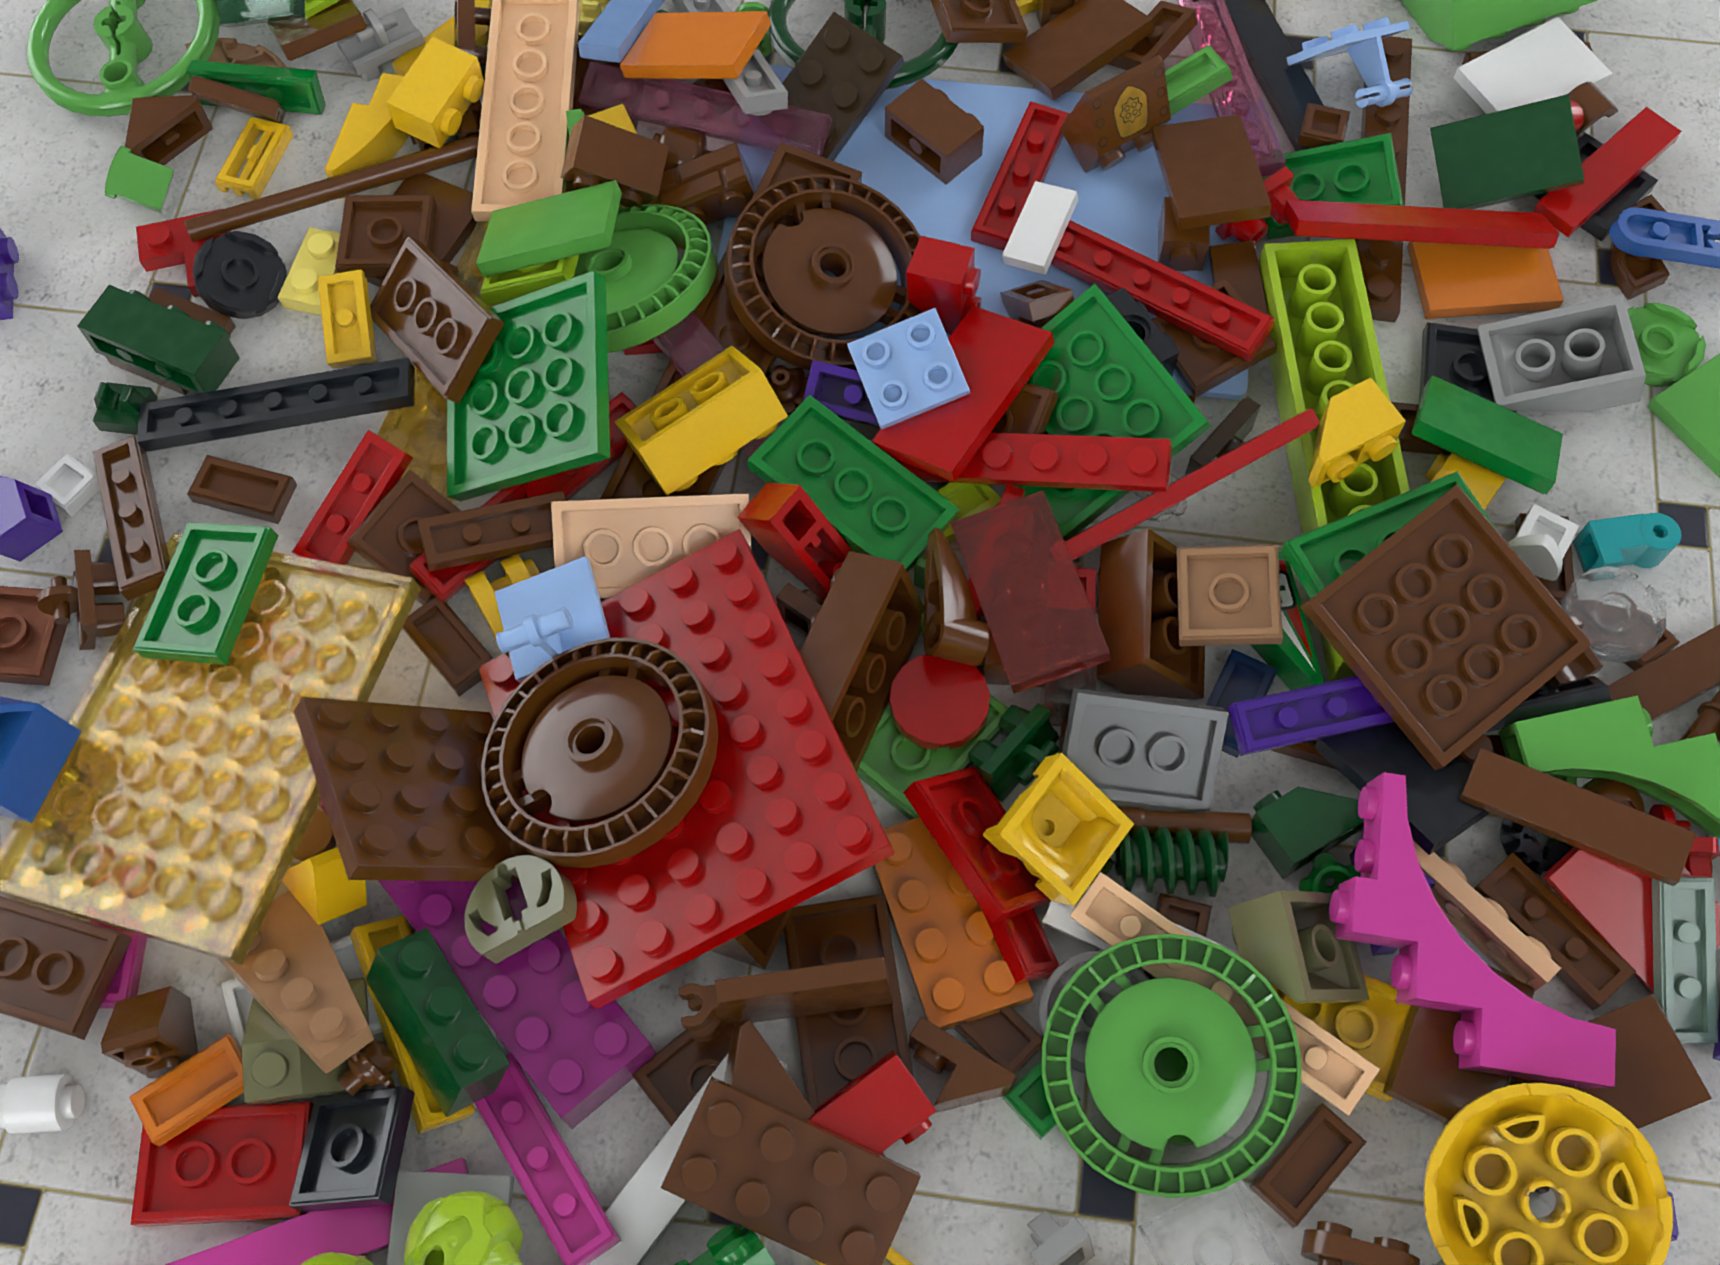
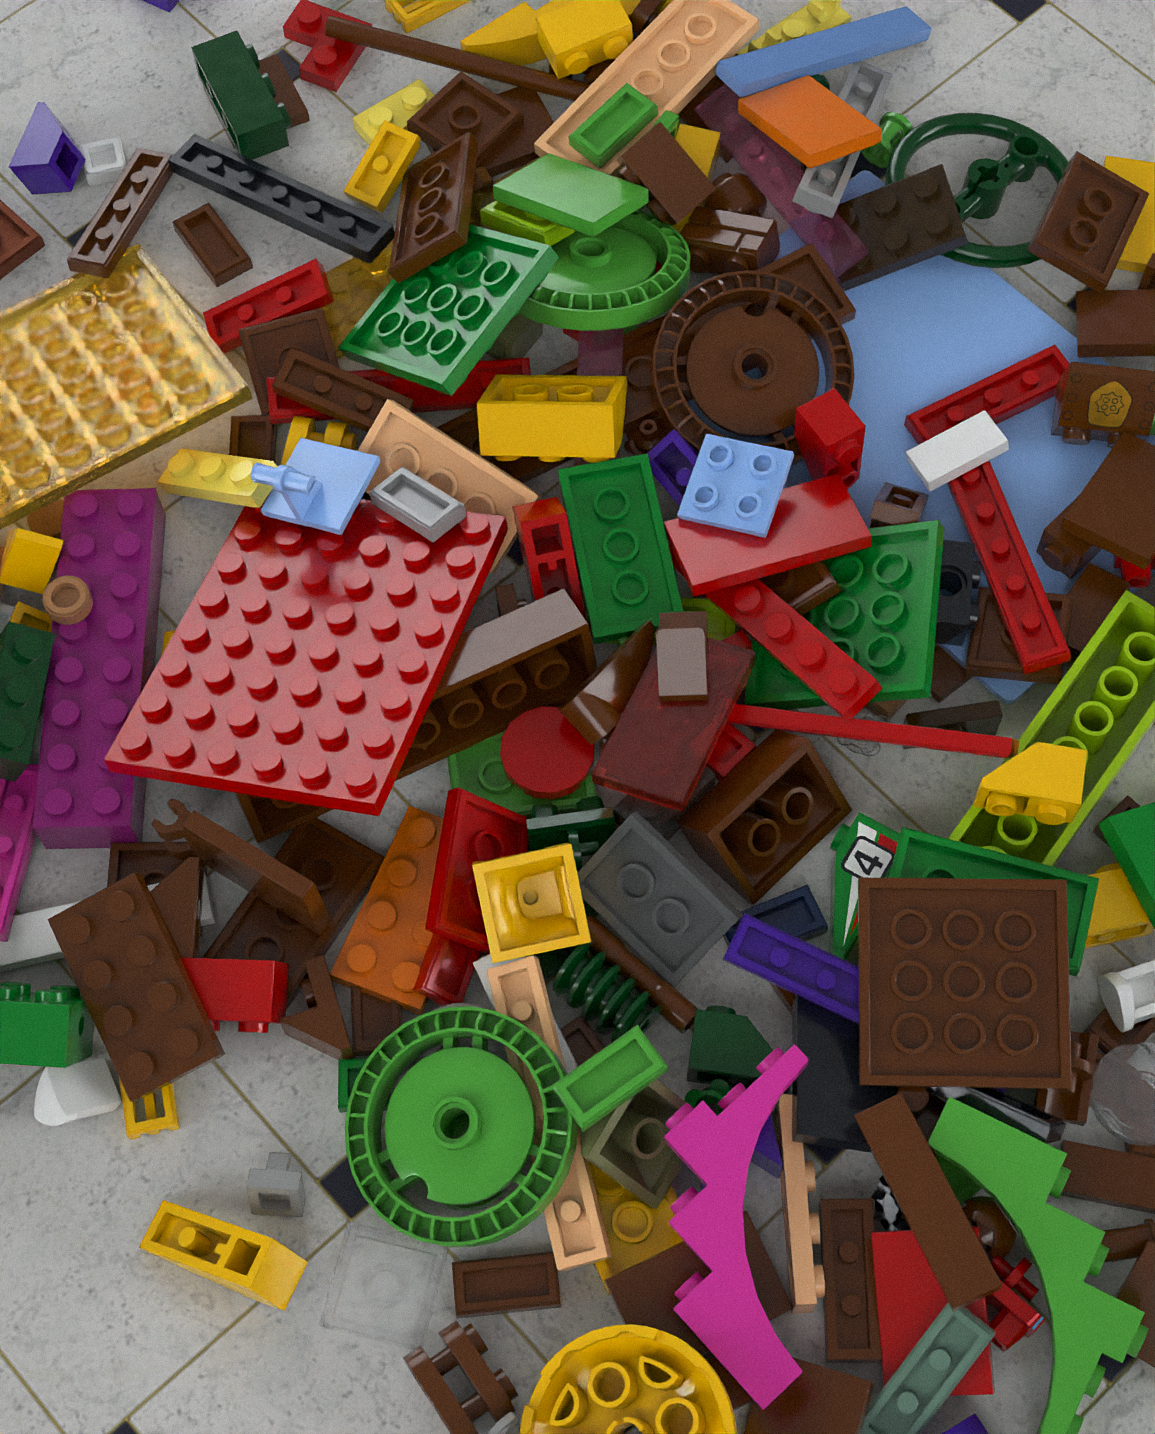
camera: 40 degrees right, 0 degrees up
(89, 581) = (38, 266): reddish brown hips -> none
(120, 406) = (181, 124): dark green tile -> none
(206, 593) = (118, 300): green tile -> none
(239, 275) = (338, 82): black tile -> none
(404, 789) = (124, 536): reddish brown plate -> none
(410, 898) = (67, 600): none -> medium nougat tile
(450, 675) = (214, 478): none -> light yellow plate
(531, 152) = (613, 125): none -> bright green tile
(549, 902) = (135, 678): olive piece -> none
(598, 748) = (259, 598): reddish brown piece -> none
(656, 572) = (417, 504): none -> light grey tile
(934, 131) = (950, 316): reddish brown brick -> none
(993, 534) = (682, 656): none -> slope
(1229, 595) = (829, 837): medium nougat tile -> none
(1269, 919) = (610, 1078): none -> bright green tile

